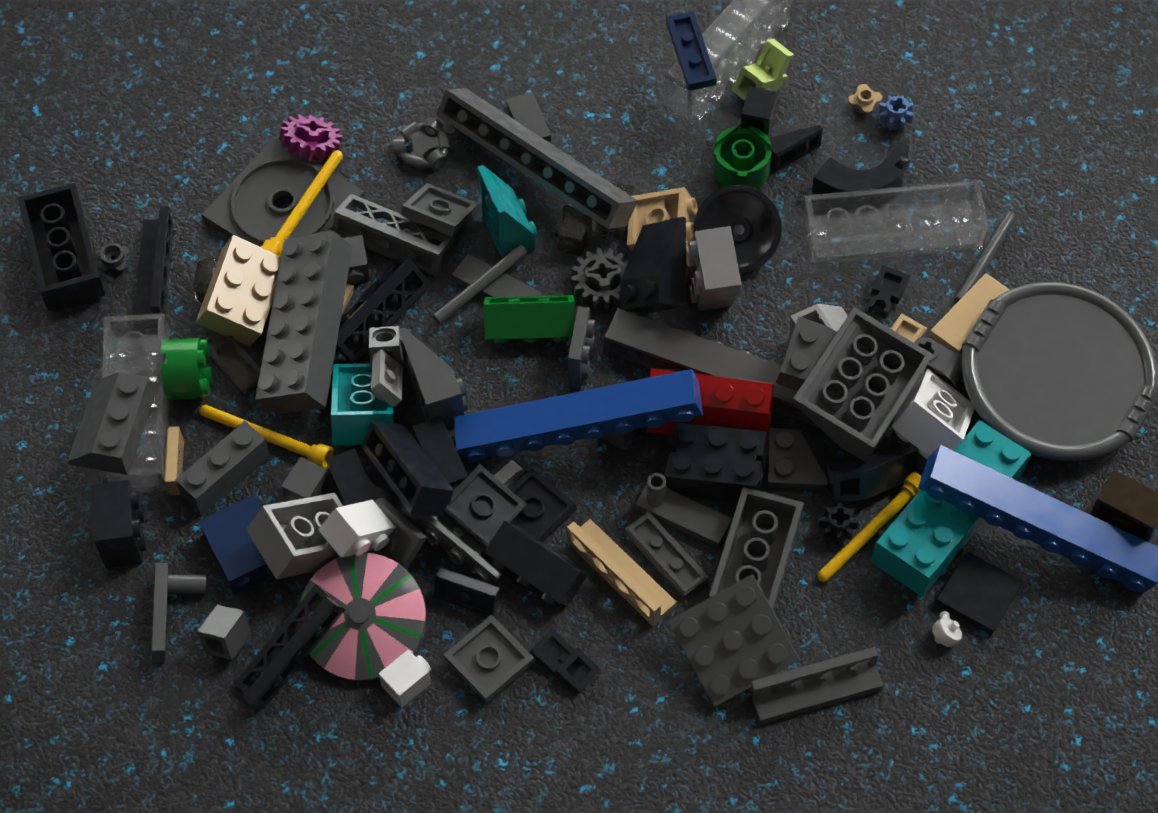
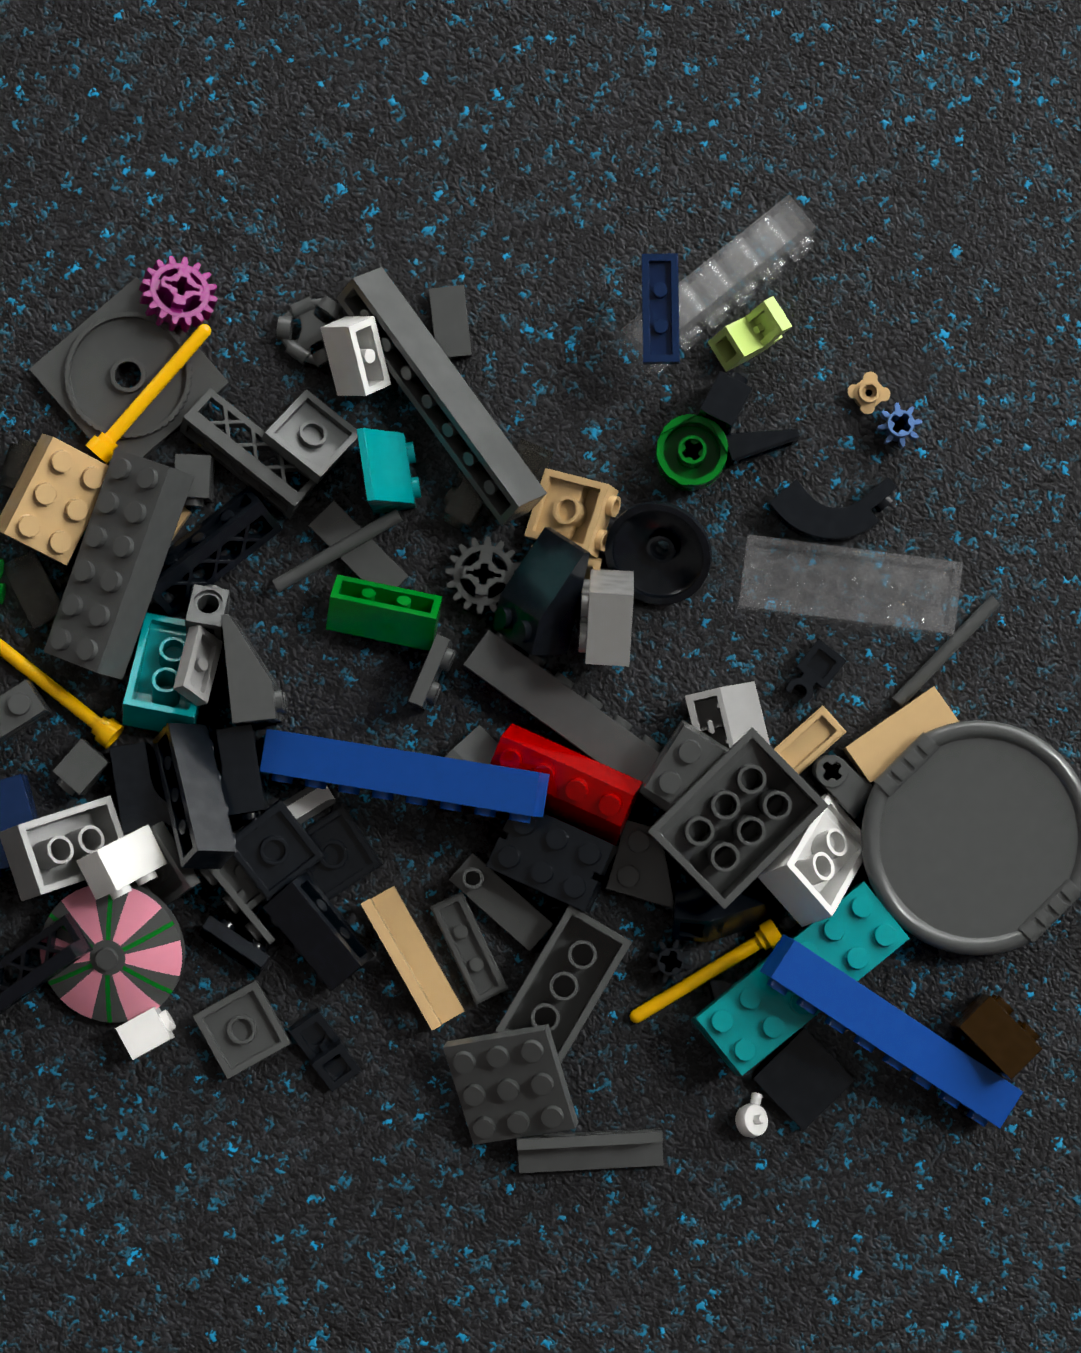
camera: 20 degrees right, 25 degrees up
(461, 144) = (355, 355): none -> white brick

